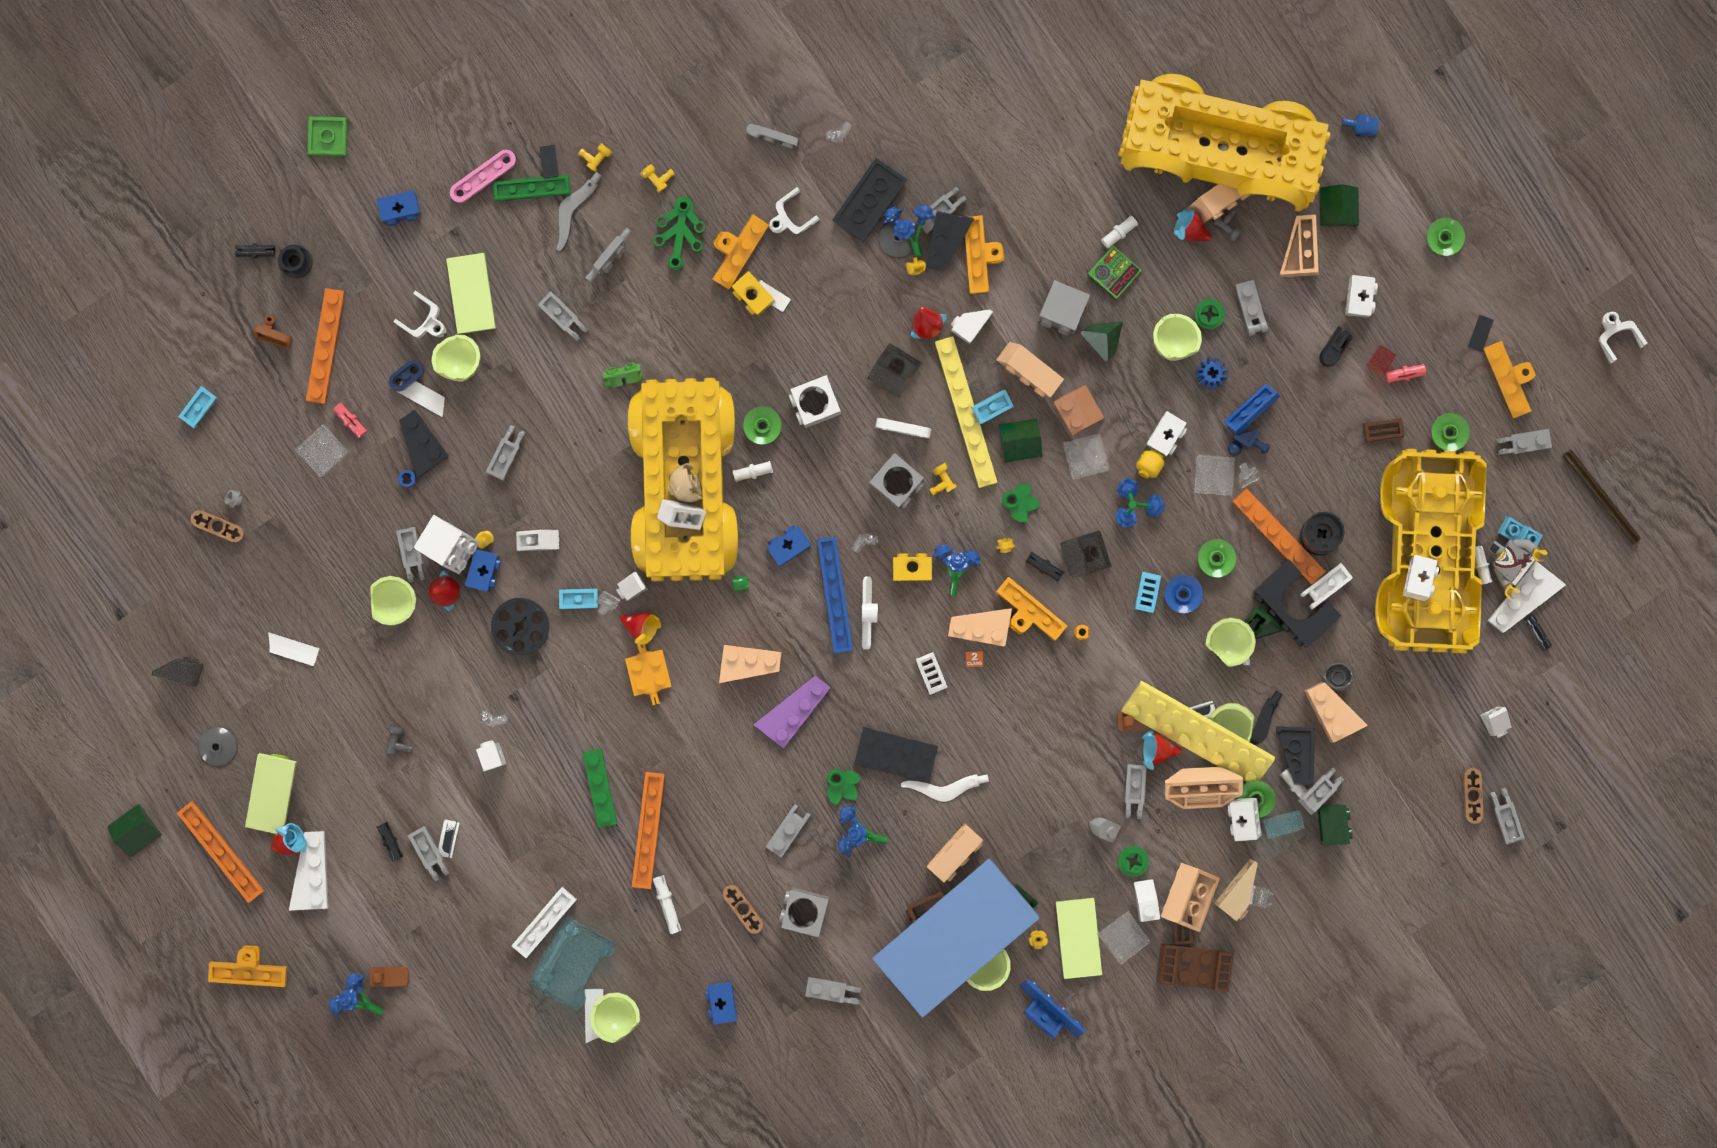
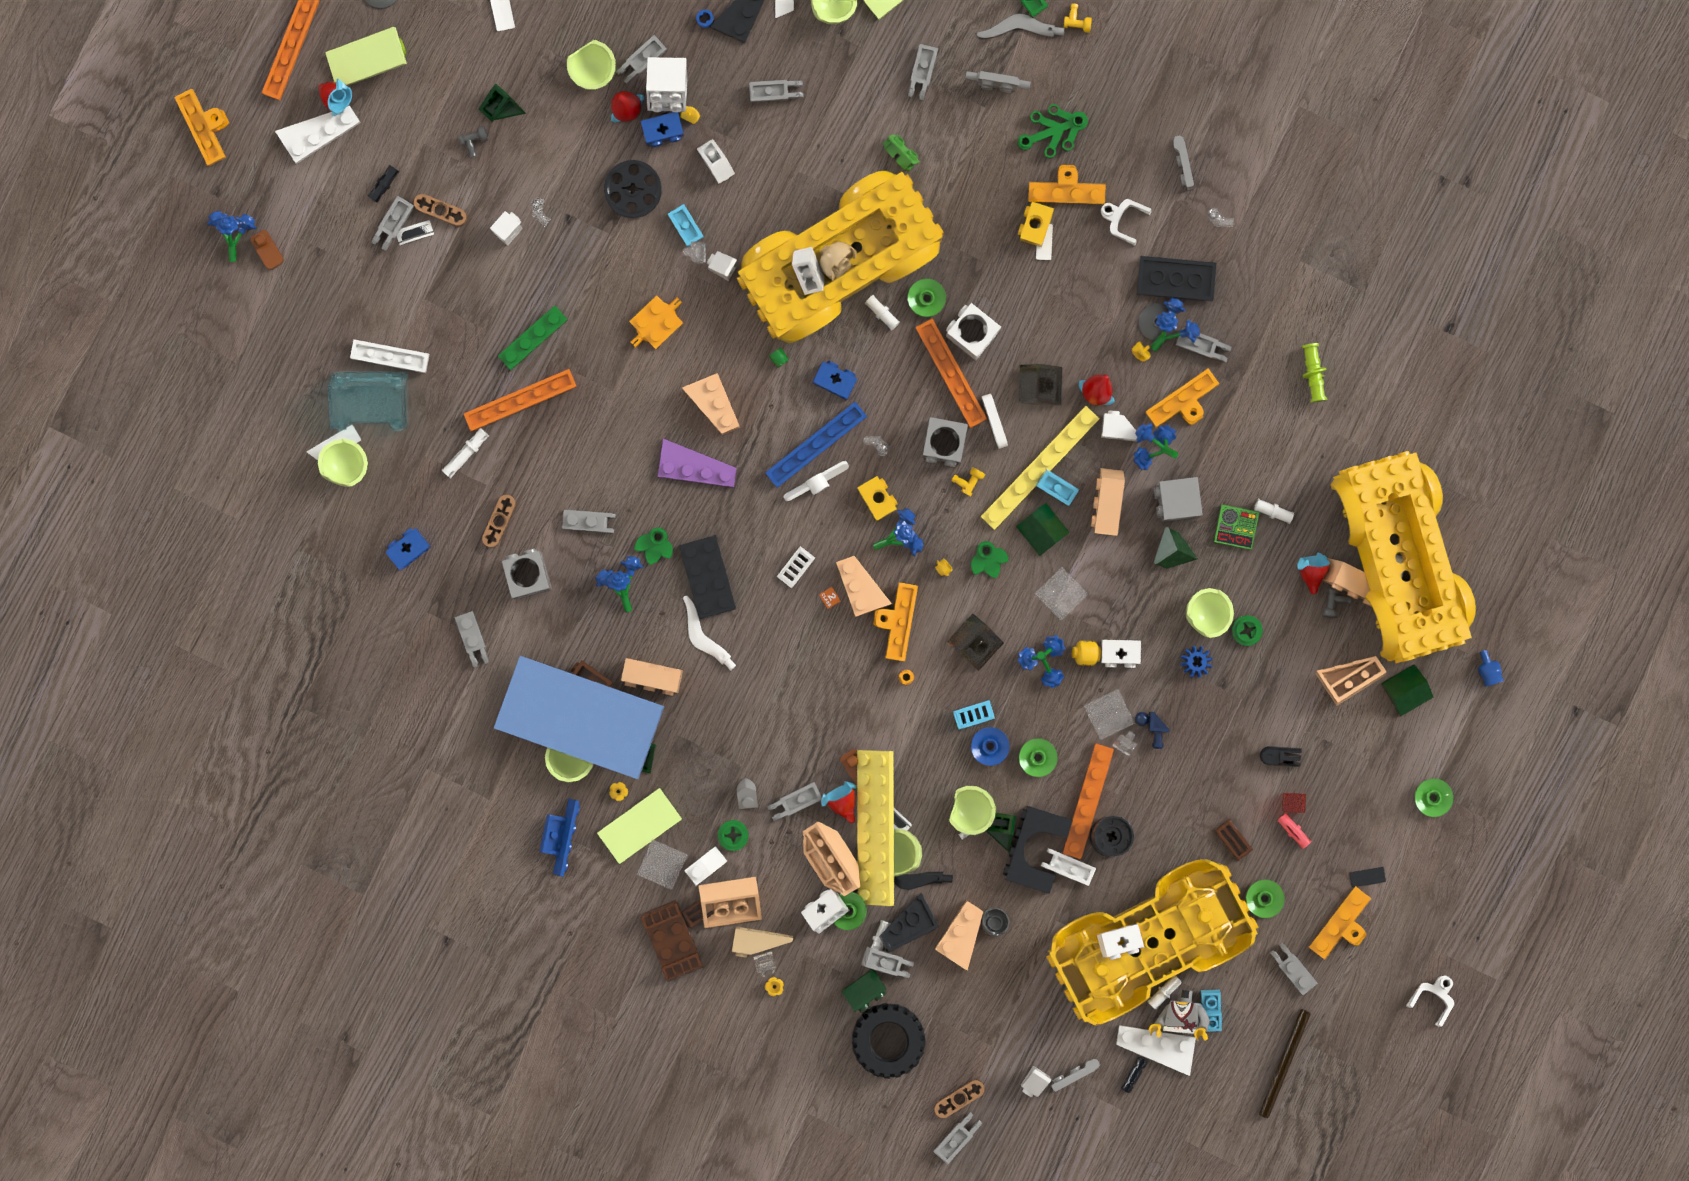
camera: 55 degrees right, 0 degrees up
(379, 700) = (499, 105): none -> dark green slope
(433, 818) = (425, 209): none -> medium nougat beam
(641, 626) = (692, 293): hat -> none
(660, 182) = (1086, 87): yellow piece -> none
(840, 442) = (951, 373): none -> orange plate
(946, 237) = (1180, 363): black wing -> none
(999, 292) = (1161, 437): none -> blue plant
(1020, 128) = (1314, 372): none -> lime piece
(1044, 566) = (945, 612): black pin -> none
(1078, 410) = (1097, 564): nougat slope -> none
(1251, 307) = (1274, 663): light grey plate -> none
(1251, 409) = (1185, 714): blue plate -> none
(1283, 824) = (839, 947): clear light blue plate -> none
(1290, 900) = (769, 986): none -> yellow plate
(1354, 305) = (1327, 753): white brick -> none
(1412, 840) = (907, 1059): none -> black tyre
(1509, 682) = (1076, 1073): none -> light grey hinge

